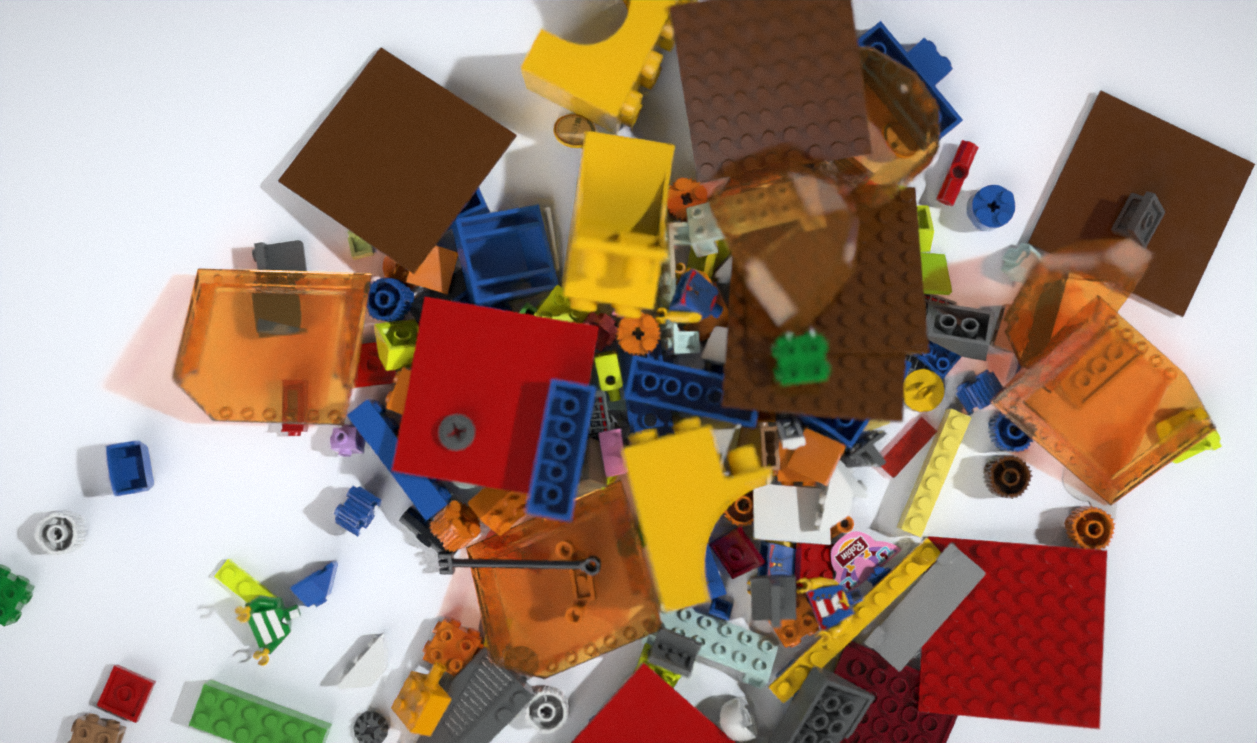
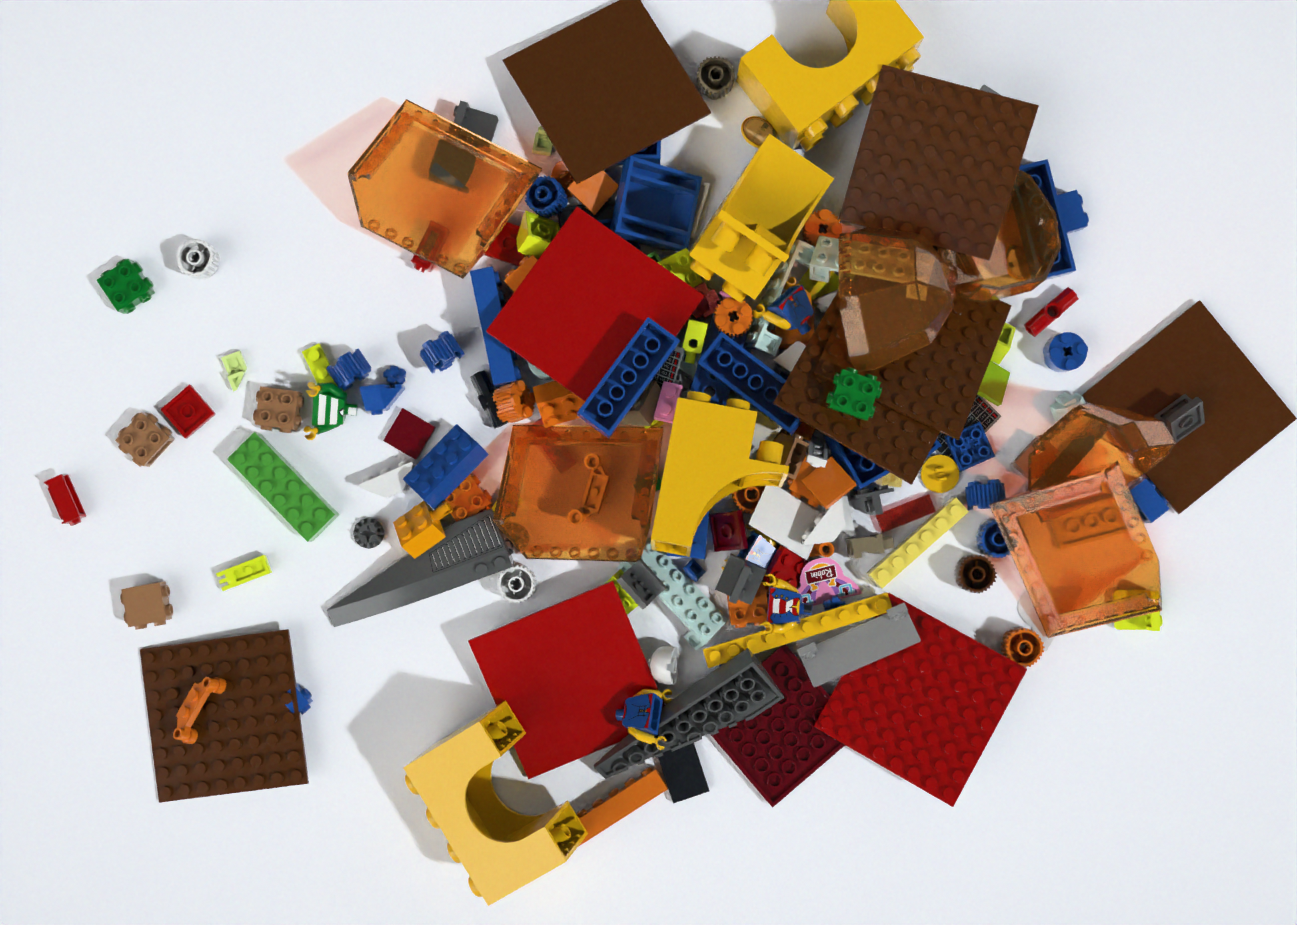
camera: 25 degrees right, 0 degrees up
(129, 468) = (276, 232): blue piece -> none
(154, 625) = (235, 368): none -> yellowish green slope
(218, 647) = (278, 409): none -> medium nougat brick
(270, 572) = (349, 369): none -> blue brick
(320, 555) = (394, 375): none -> blue plant
(347, 441) = (459, 293): lavender brick -> none
(364, 607) = (409, 434): none -> dark red tile
(417, 626) = (445, 466): none -> blue brick
(447, 428) = (545, 318): dark grey gear -> none
(448, 563) = (496, 430): black hinge -> none
(505, 107) = (715, 87): none -> dark tan brick
(885, 498) = (874, 544): none -> dark tan hips
(960, 329) = (993, 437): dark grey slope -> none
(1147, 320) = (1148, 501): none -> blue brick

